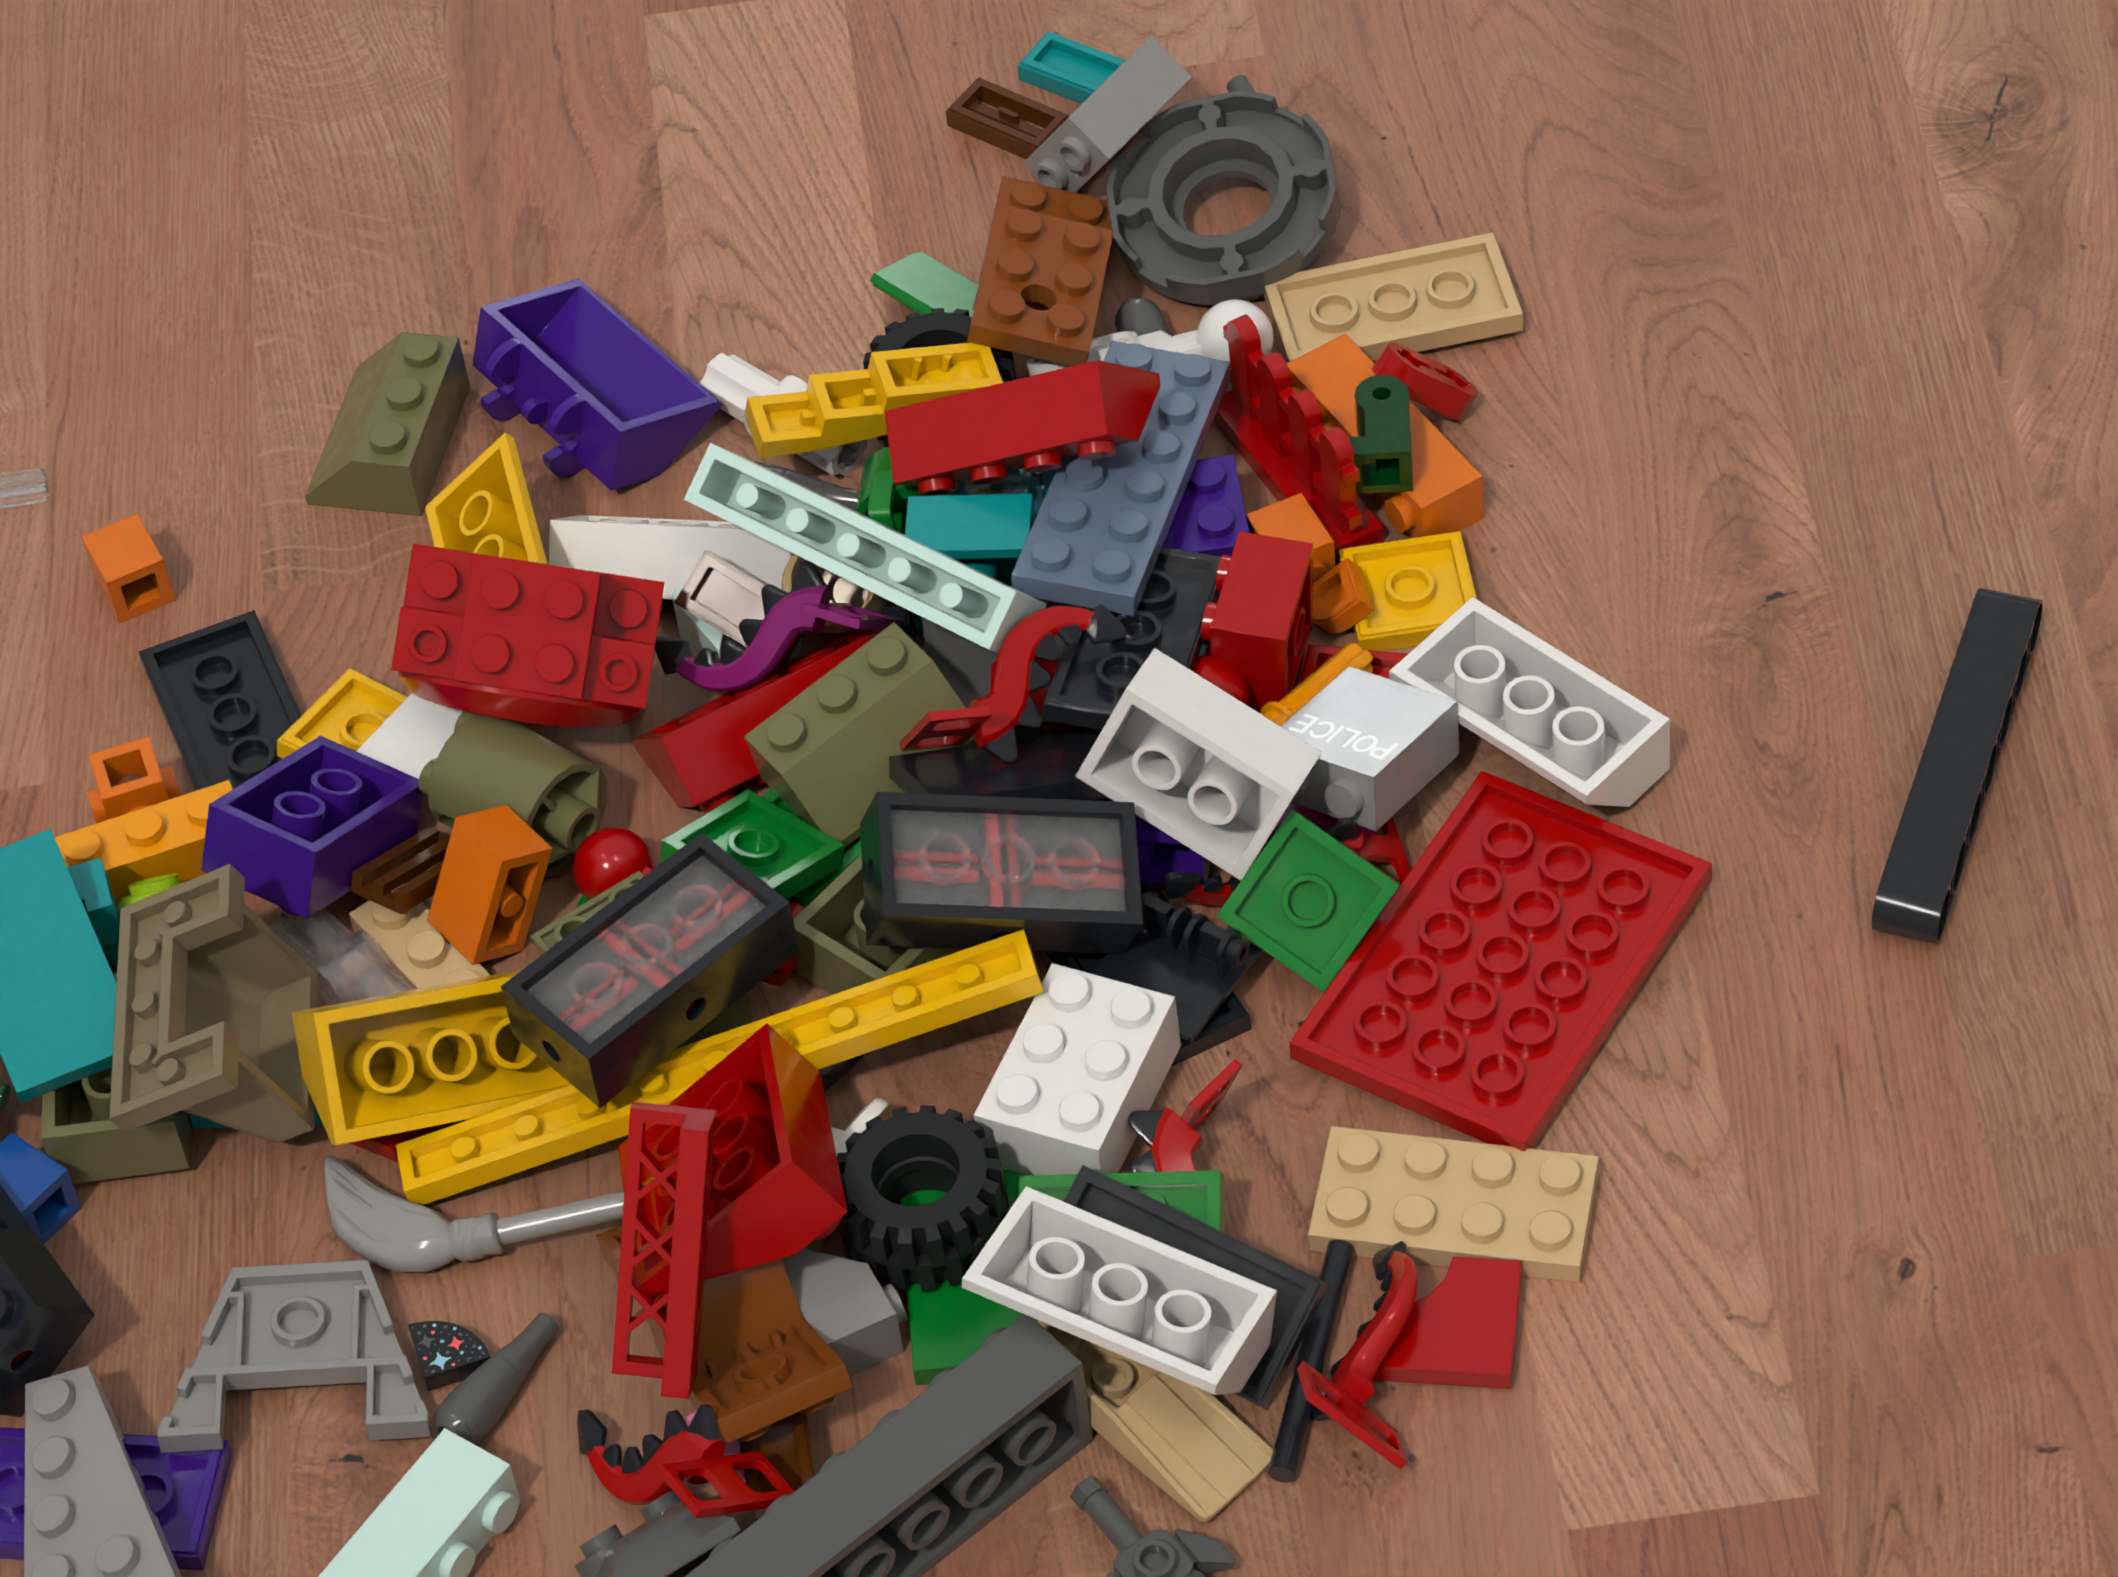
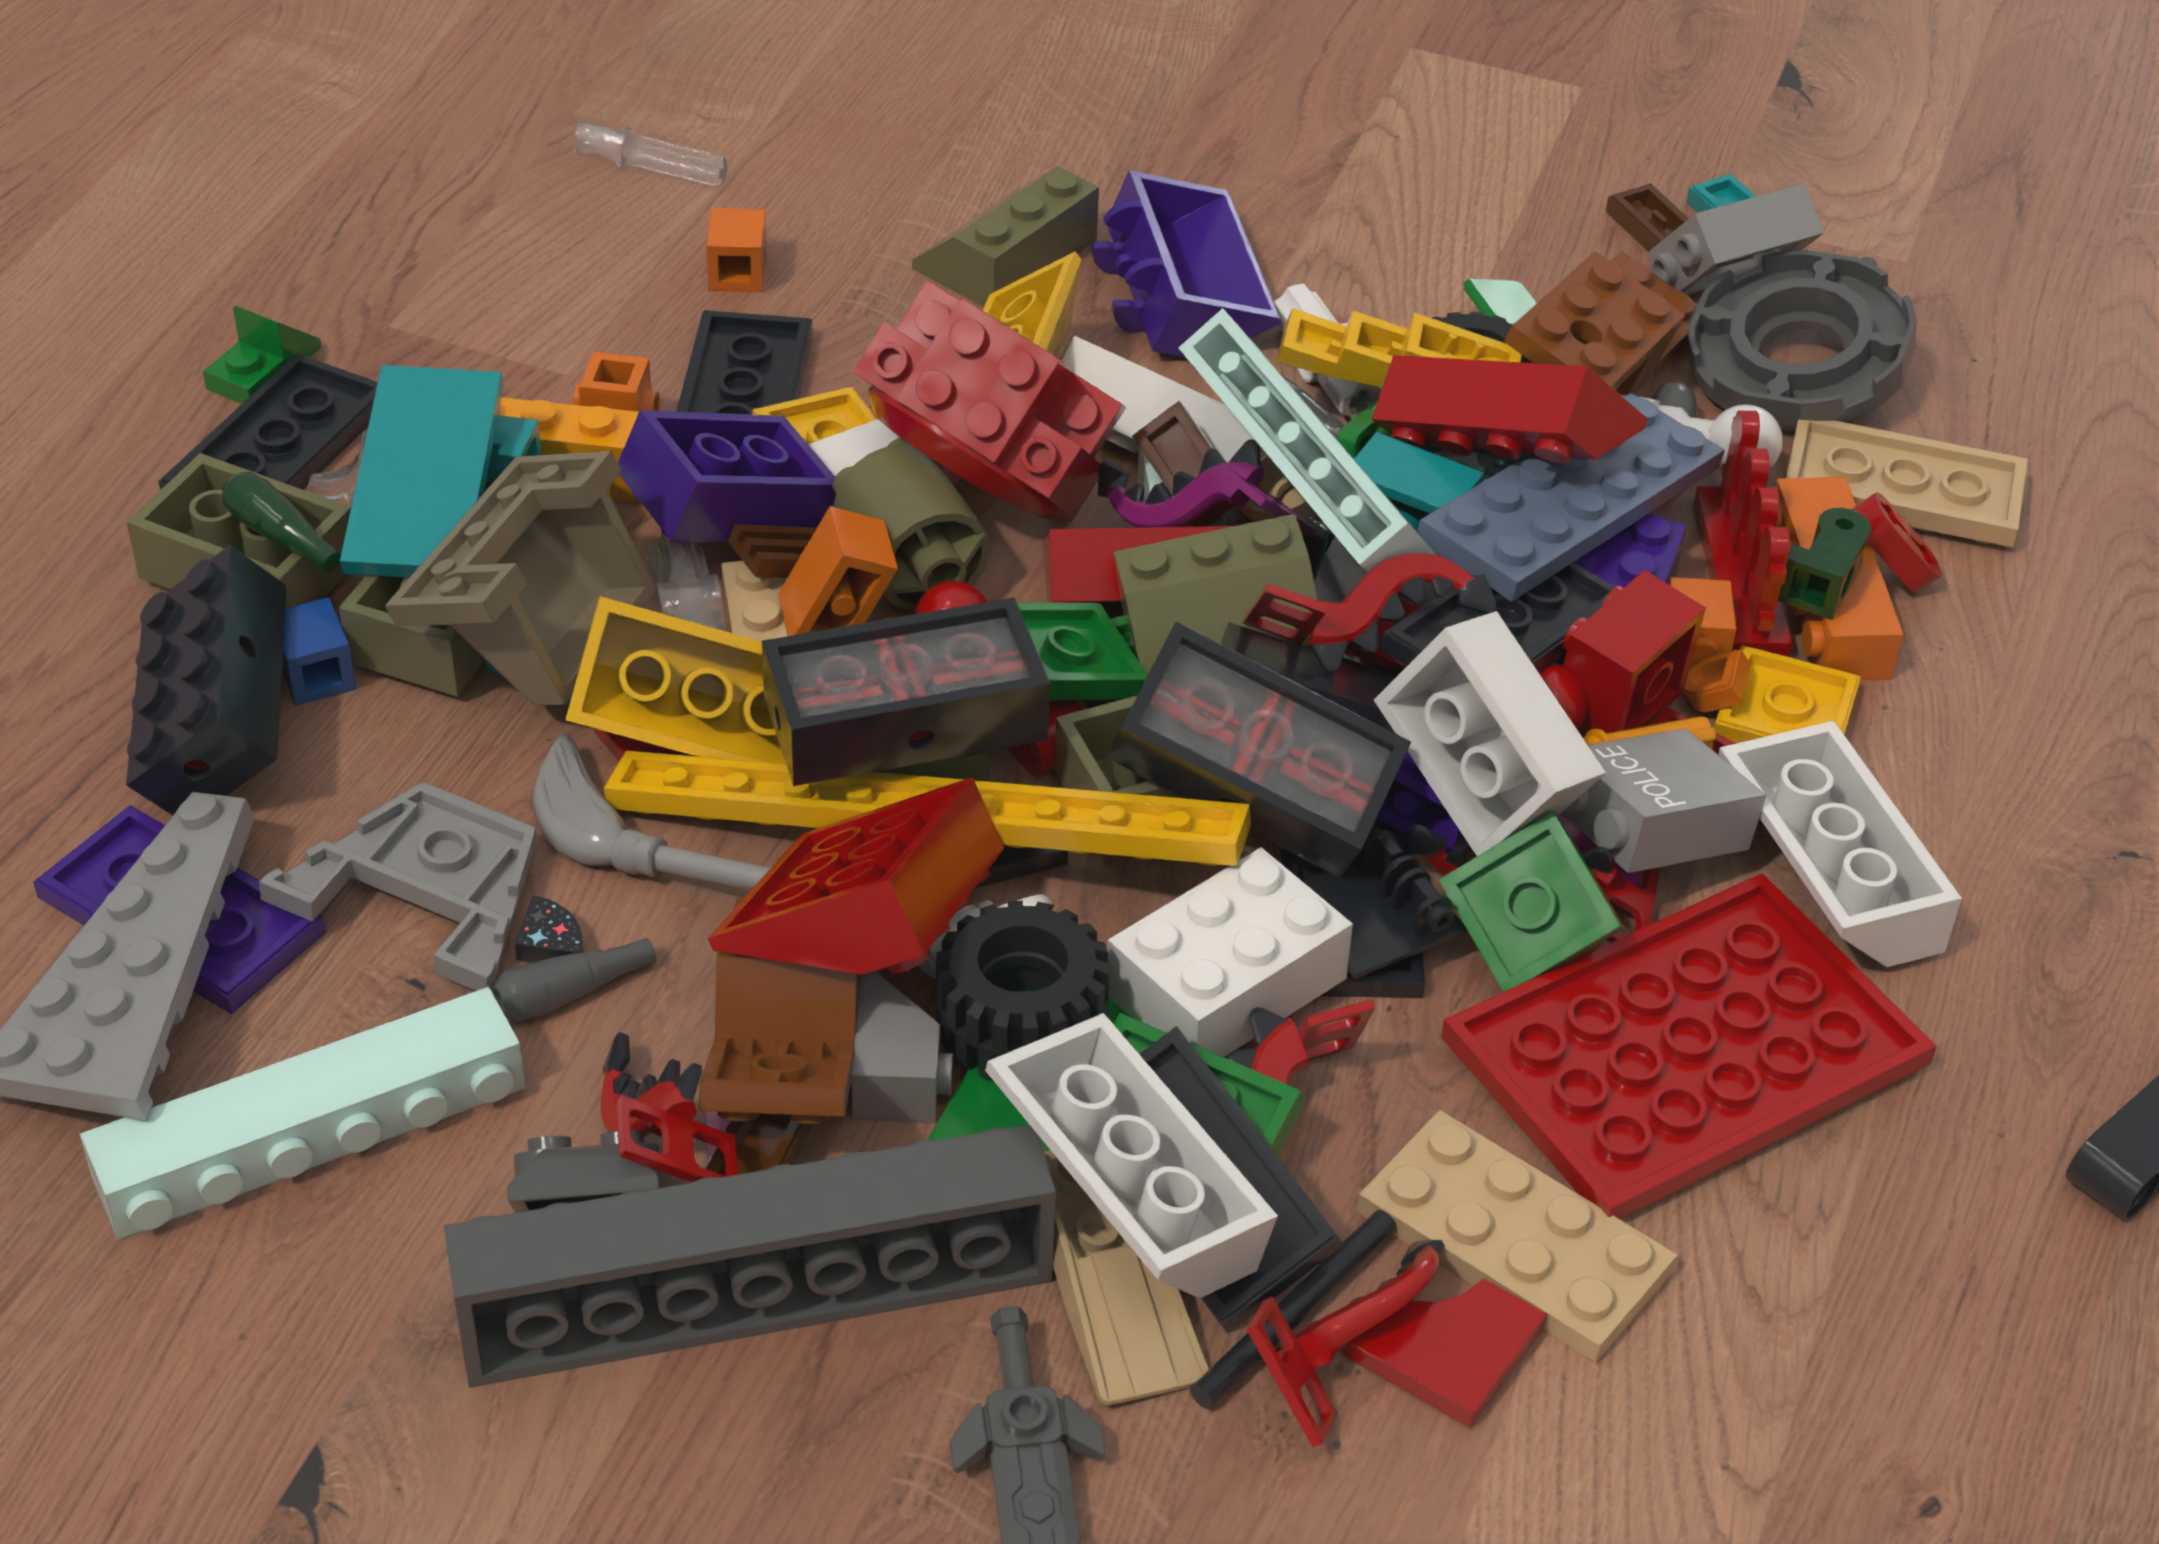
camera: 20 degrees right, 5 degrees down
(688, 1249) = (758, 906): red fence -> none

